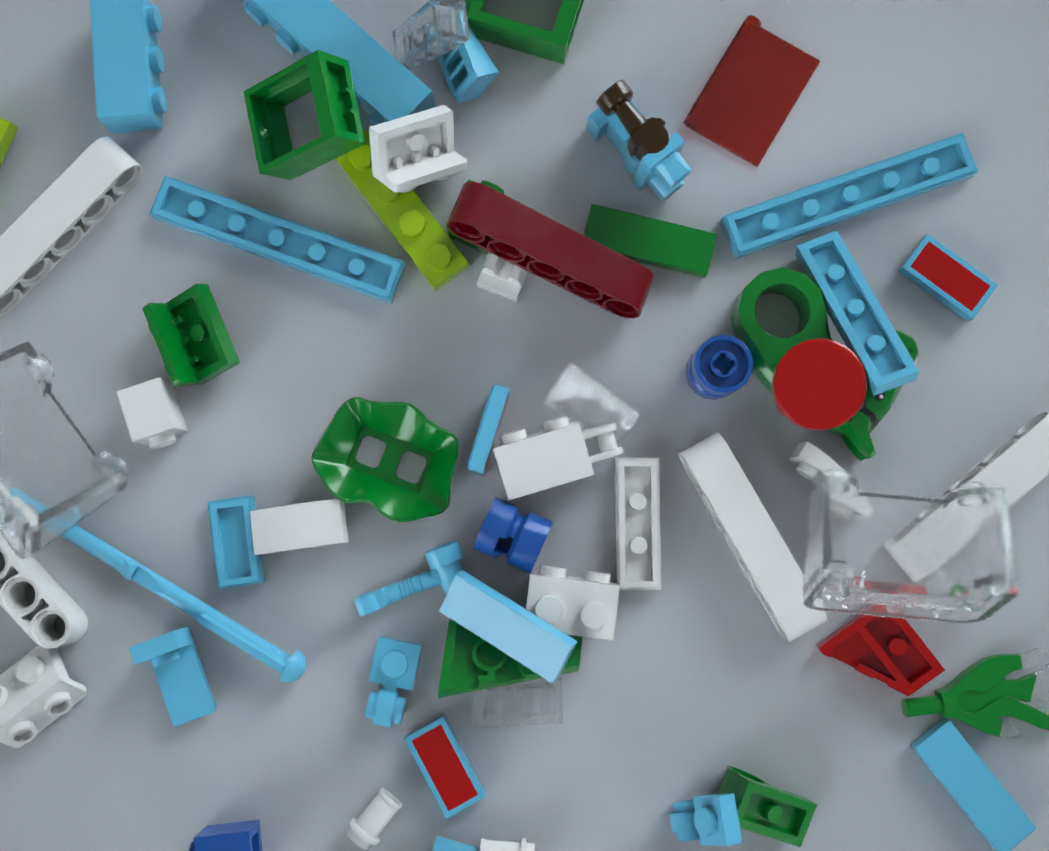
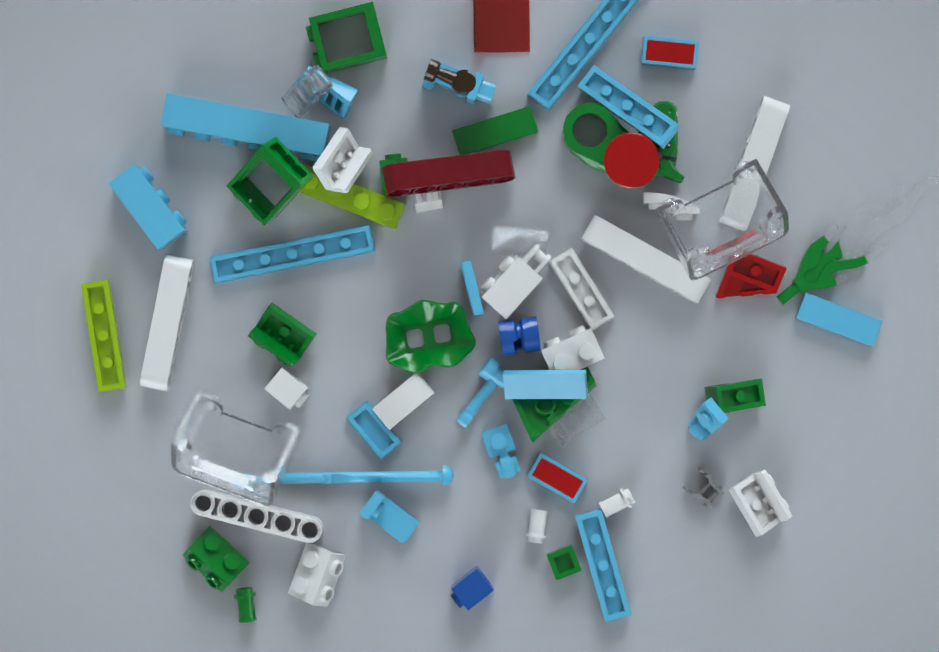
camera: 40 degrees left, 5 degrees up
(719, 367) = (574, 180): blue wheel -> none

